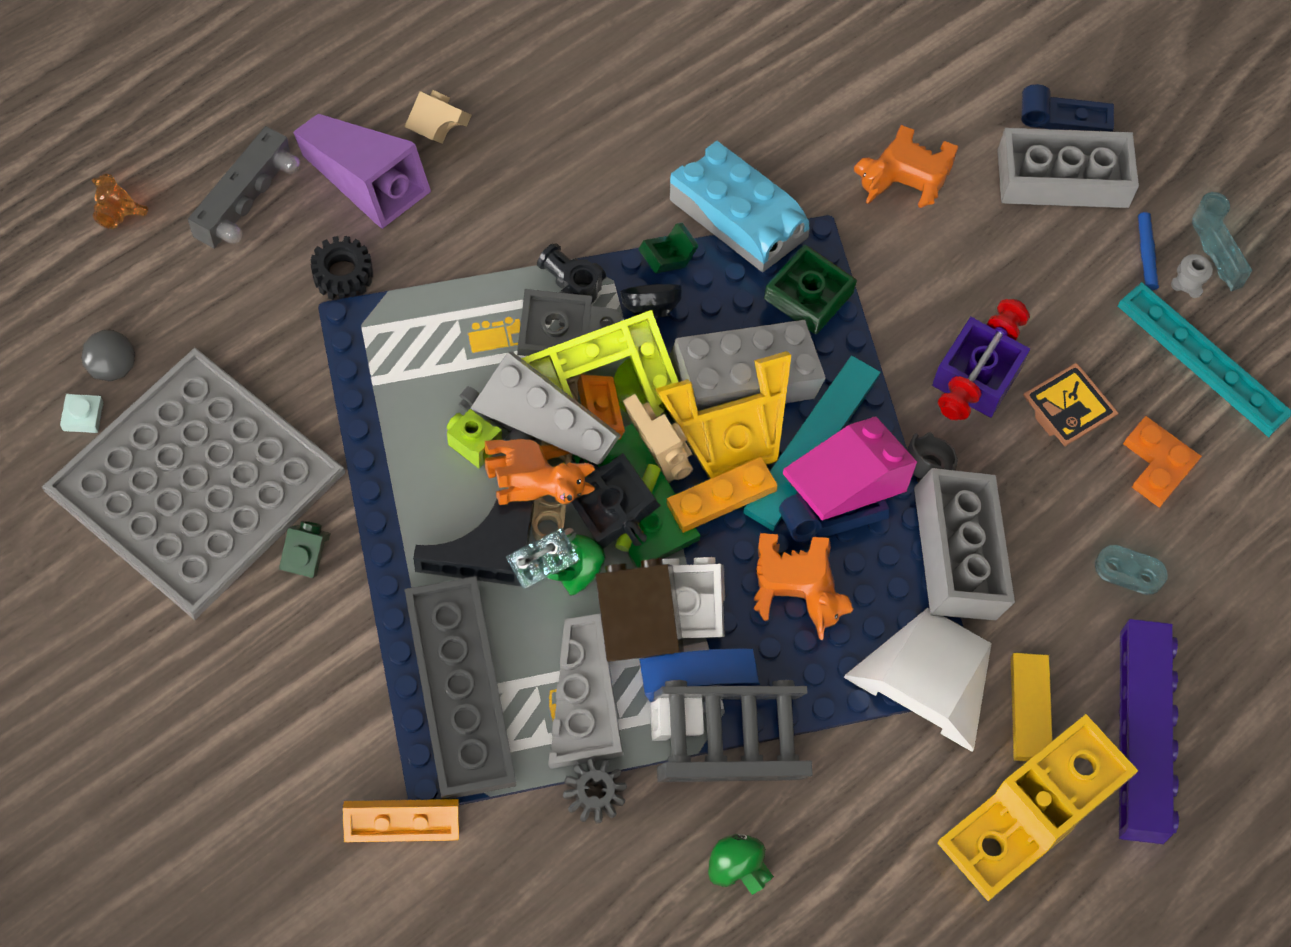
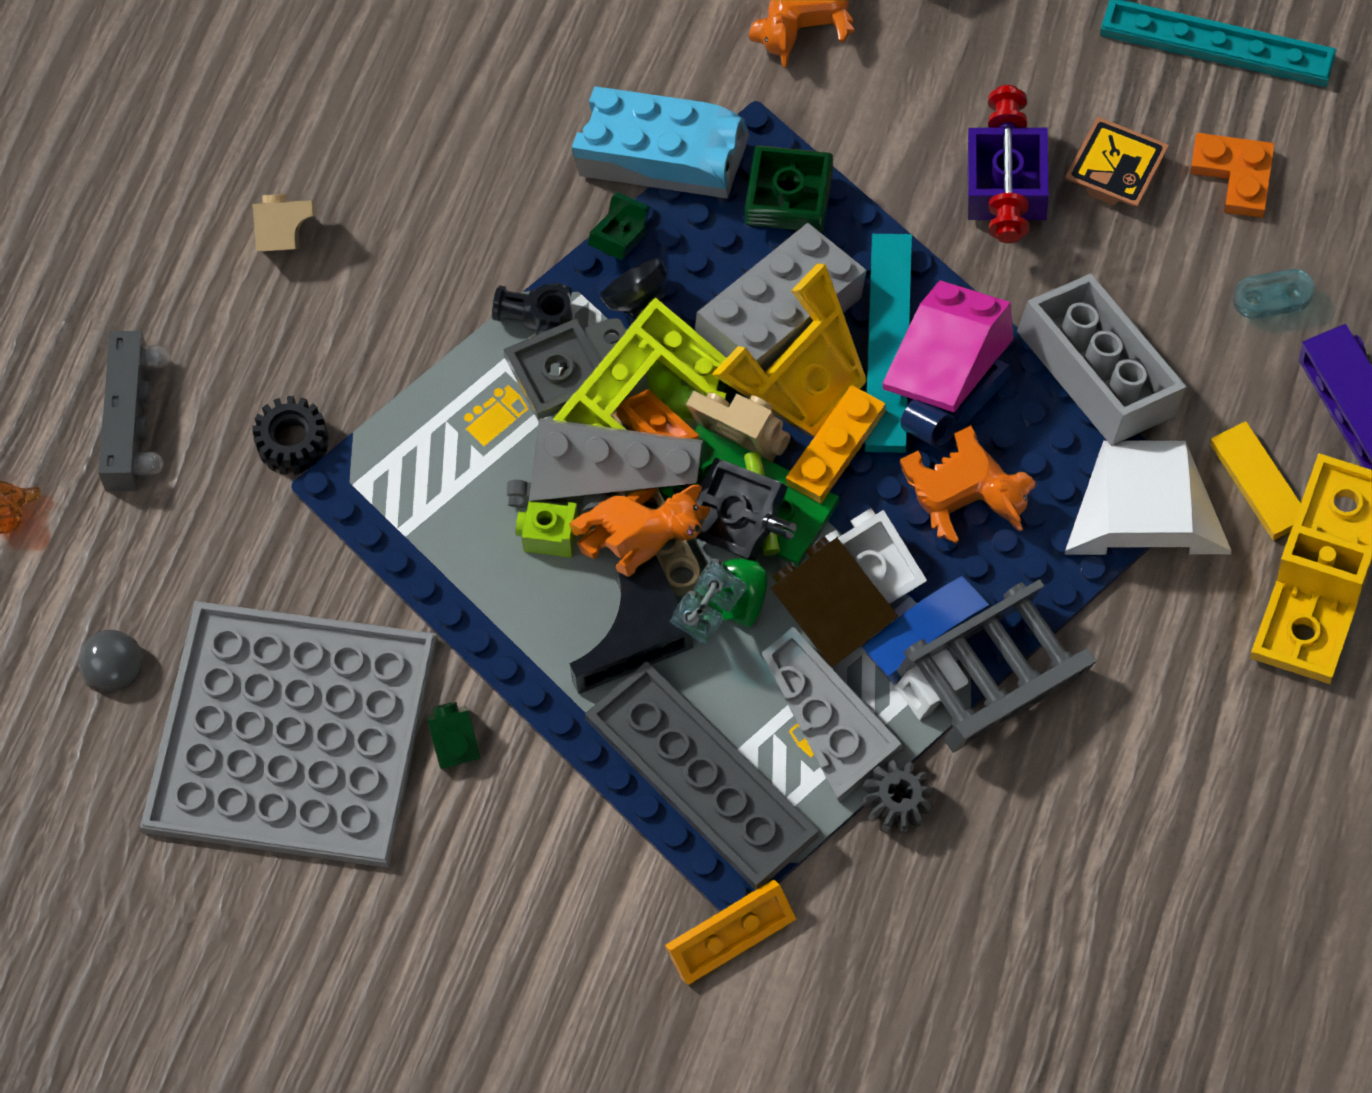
camera: 20 degrees left, 0 degrees up
(81, 413) = (125, 733): light aqua plate -> none
(367, 166) = (245, 315): medium lavender slope -> none
(739, 858) = (1075, 779): green piece -> none
(931, 453) = (1015, 286): dark grey hair -> none

